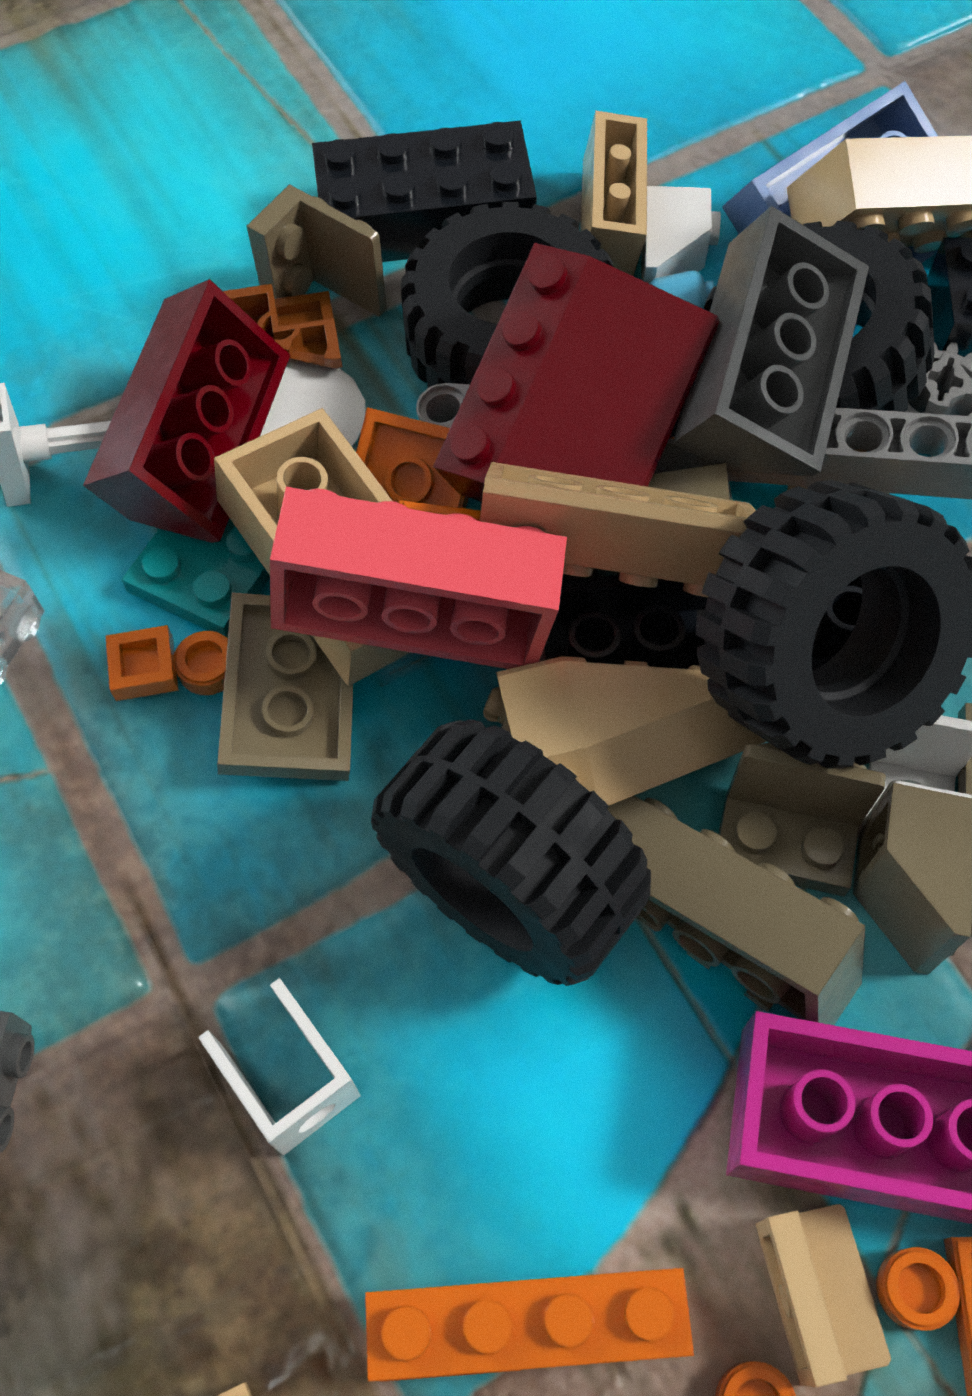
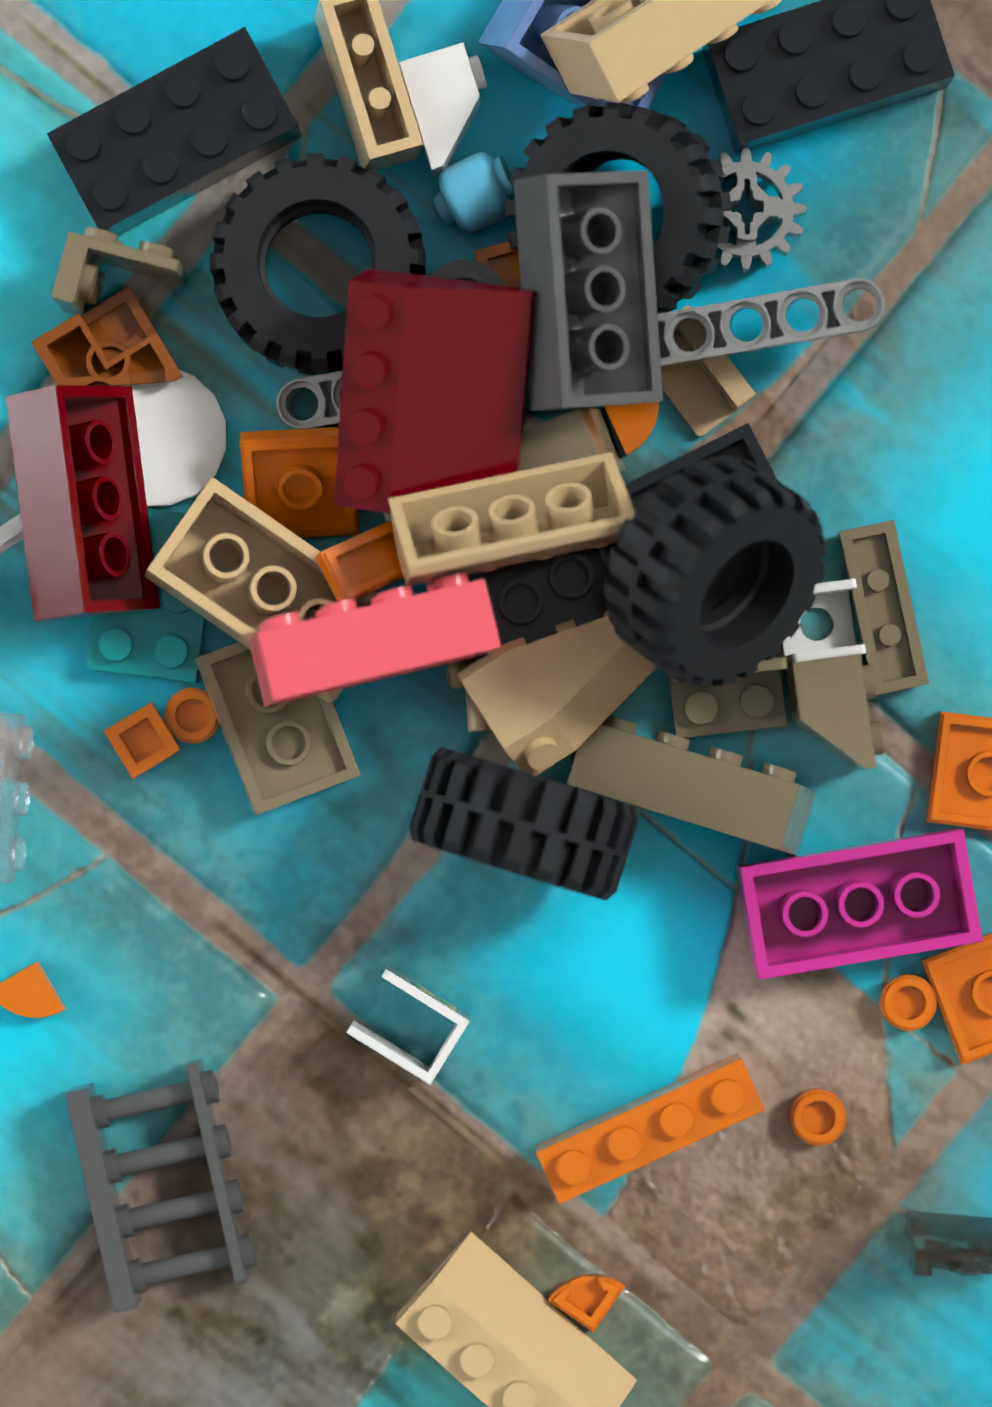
camera: 20 degrees left, 25 degrees up
(822, 1295) = (843, 1029): tan panel -> none

